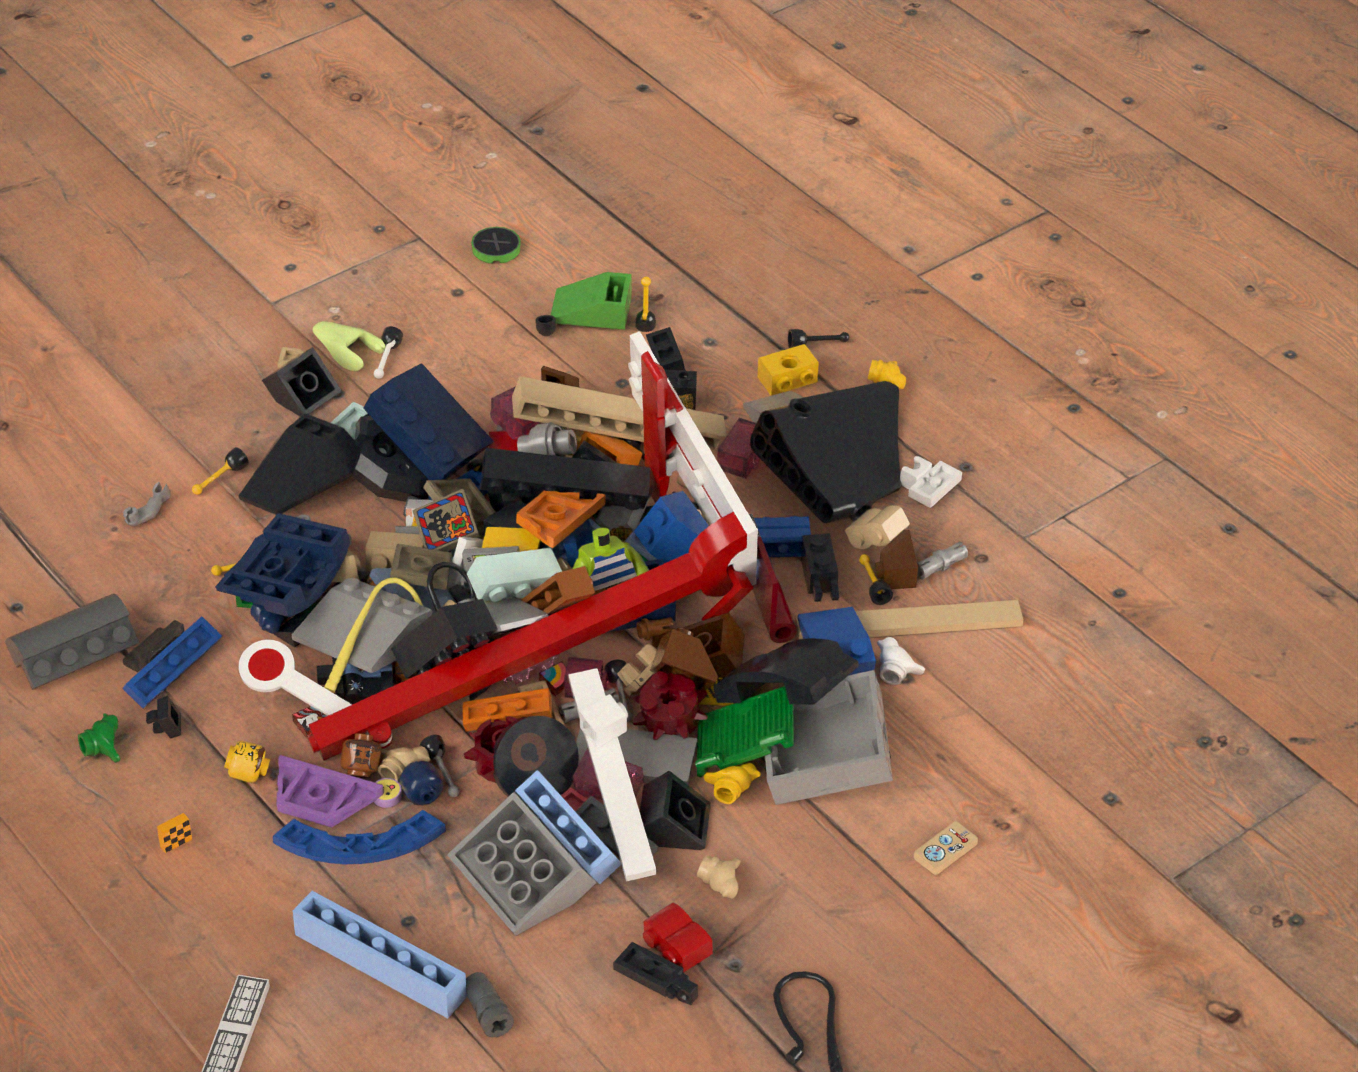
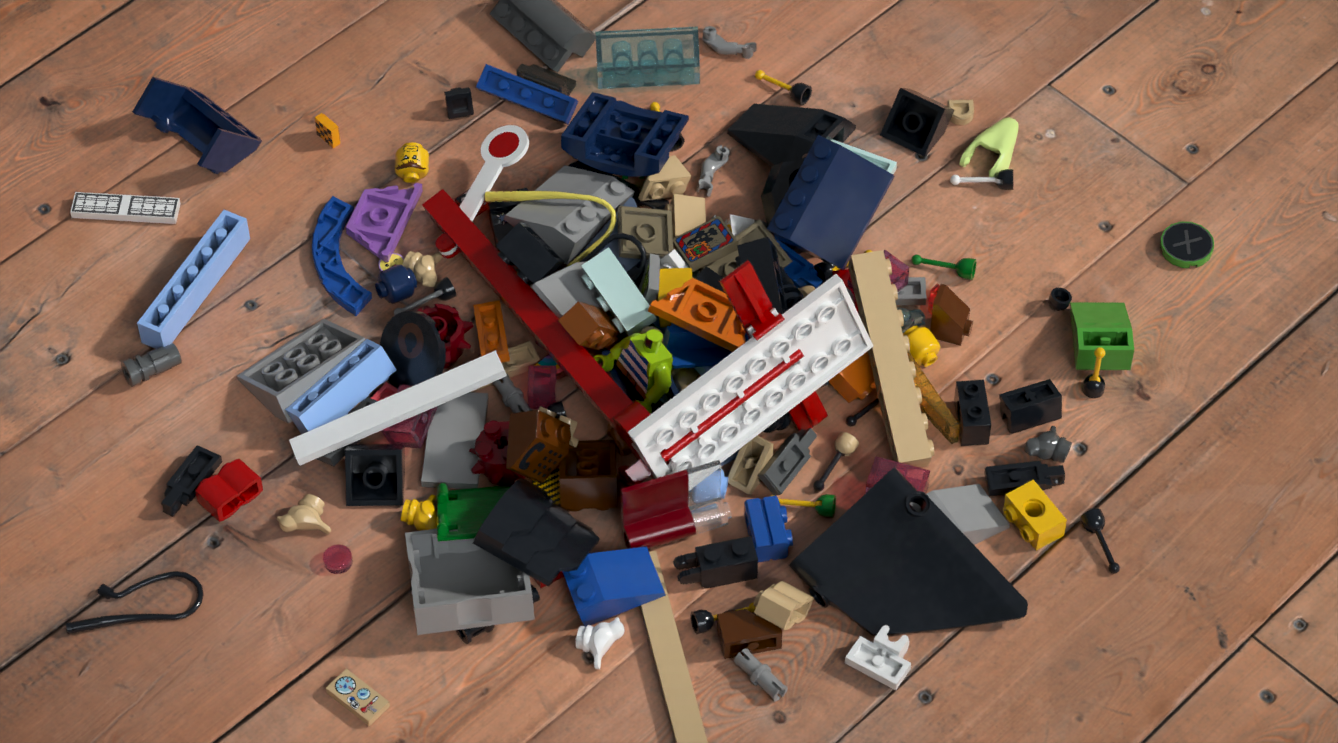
camera: 85 degrees right, 10 degrees up
(100, 738) = (431, 65): green animal -> none
(145, 939) = (199, 122): none -> dark blue windscreen
(162, 558) = (647, 57): none -> clear light blue slope
(360, 756) = (420, 235): dark orange head -> none
(493, 377) = (965, 267): none -> green hinge
(603, 720) = (435, 381): white brick -> none
(712, 351) = (1048, 446): none -> dark grey animal
(744, 374) = (1006, 478): none -> black hinge
(756, 502) = (824, 505): none -> green hinge
(773, 857) = (337, 559): none -> clear pink tile
(886, 371) = (1051, 607): yellow animal -> none

